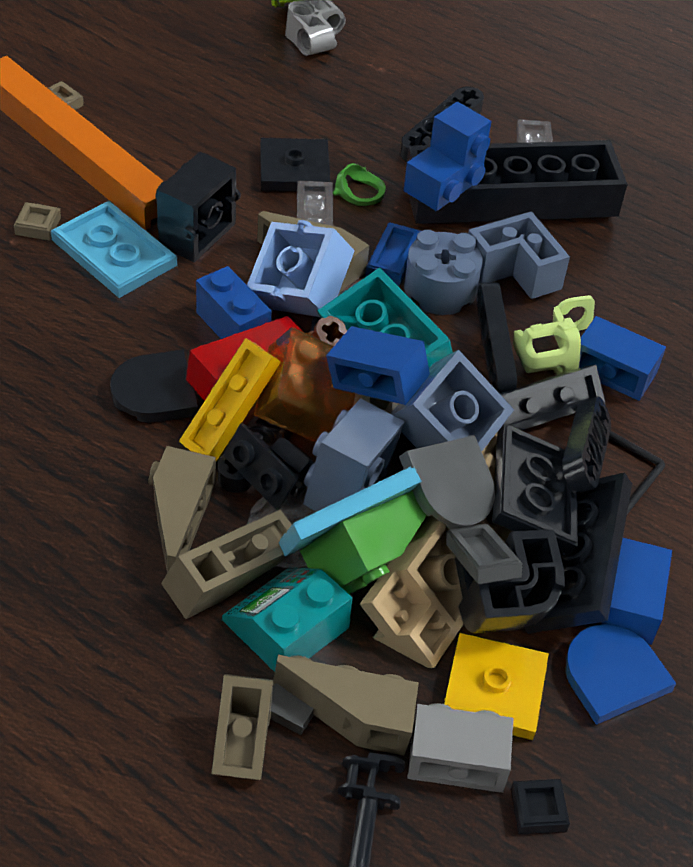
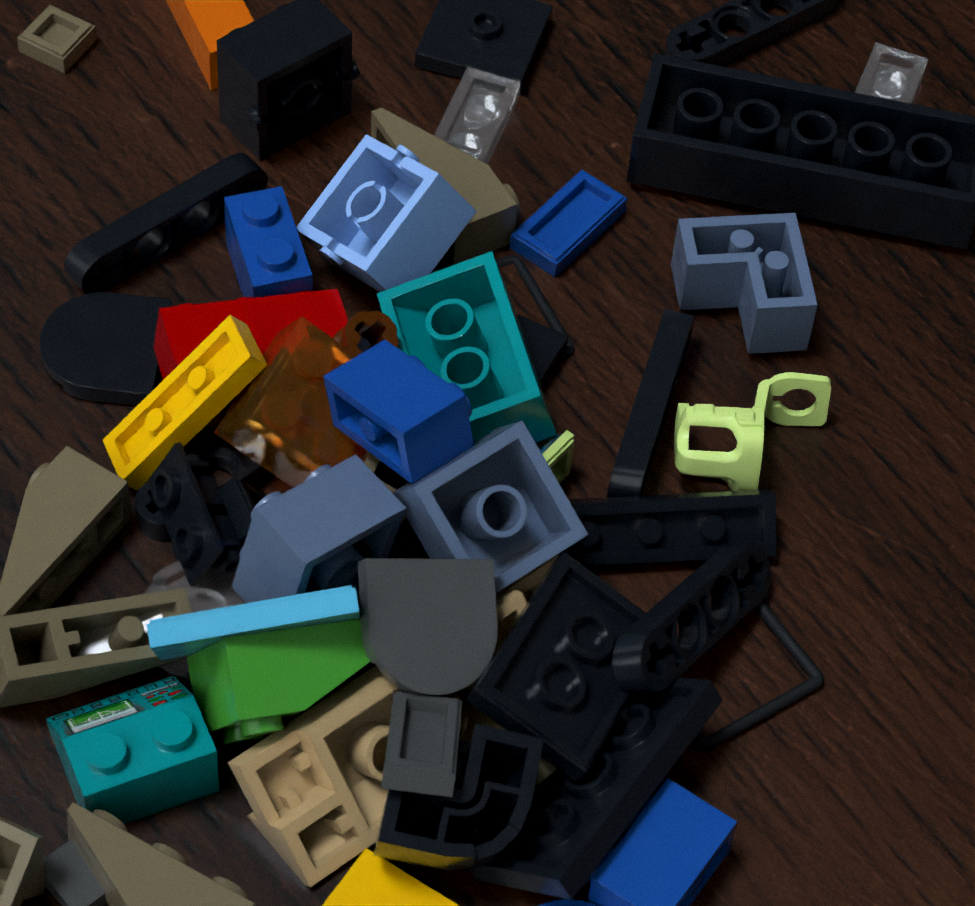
camera: 20 degrees right, 5 degrees up
(114, 248) = (148, 110): medium azure tile -> none
(157, 309) = (165, 221): none -> black beam
(362, 175) = (576, 75): bright green piece -> none
(443, 271) = (618, 274): sand blue brick -> none
(453, 158) = (690, 103): blue brick -> none
(621, 357) = (830, 489): blue brick -> none

